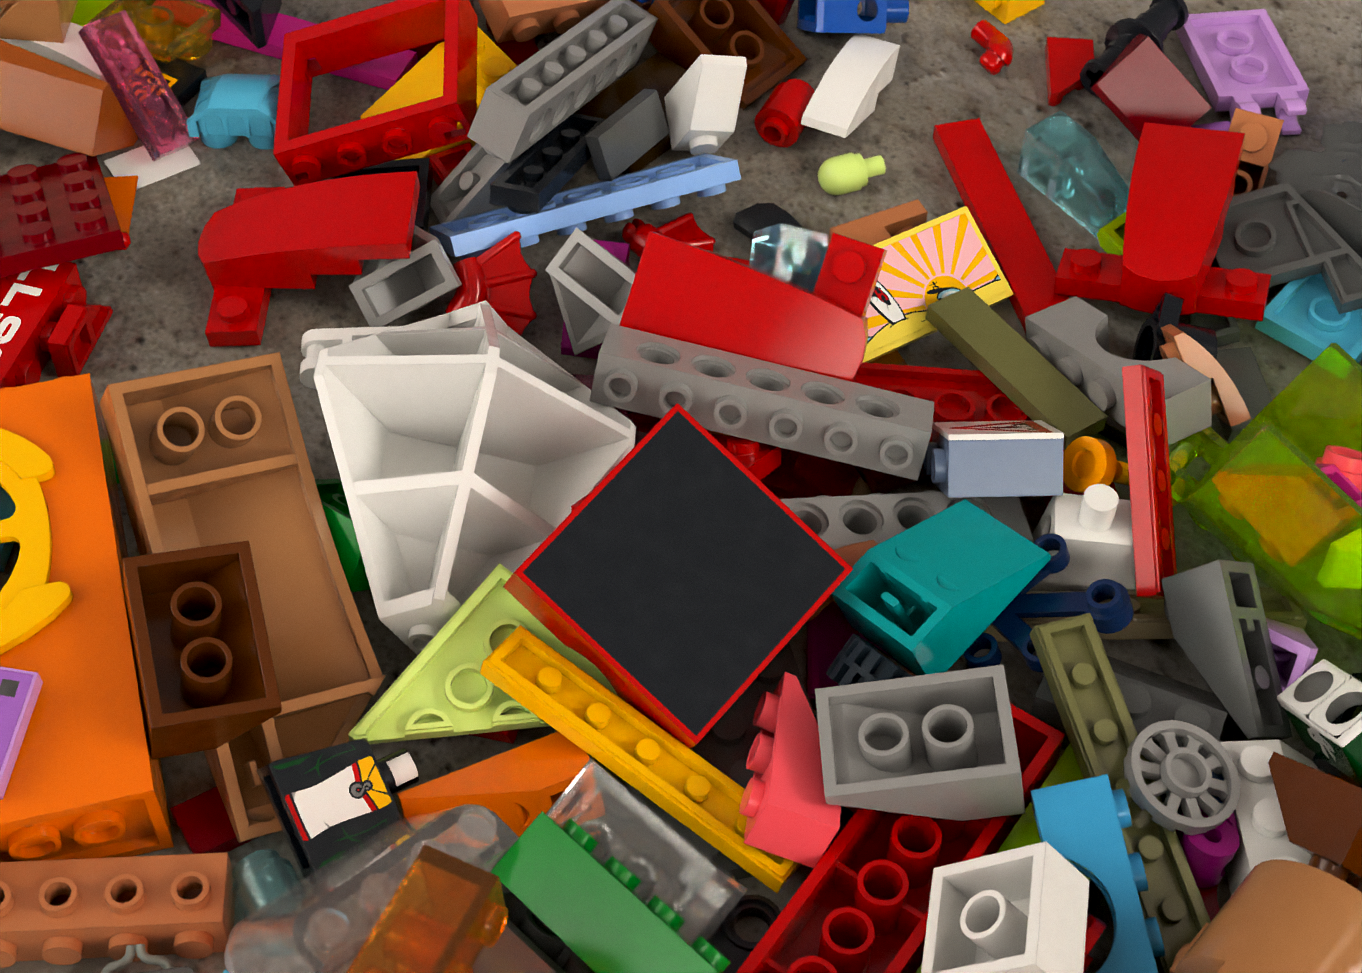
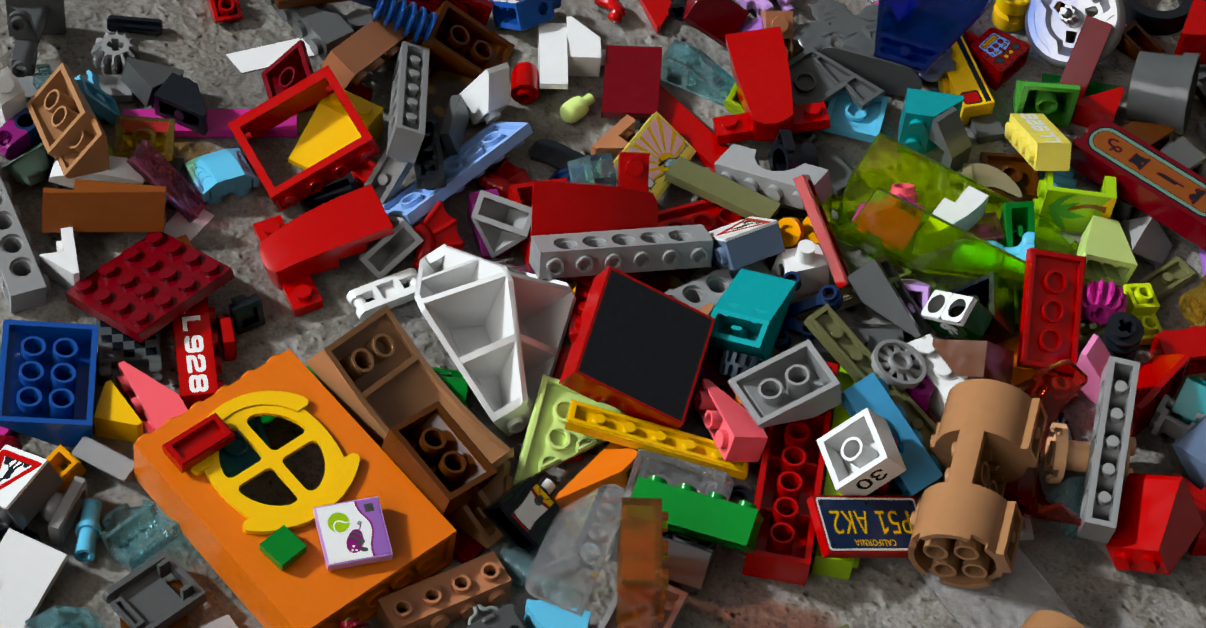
camera: 30 degrees left, 0 degrees up
(127, 313) = (246, 313): none -> black tile
(905, 92) = (583, 50): none -> white slope
(958, 156) = (631, 82): none -> dark red tile
(1225, 397) = (805, 156): nougat slope -> none

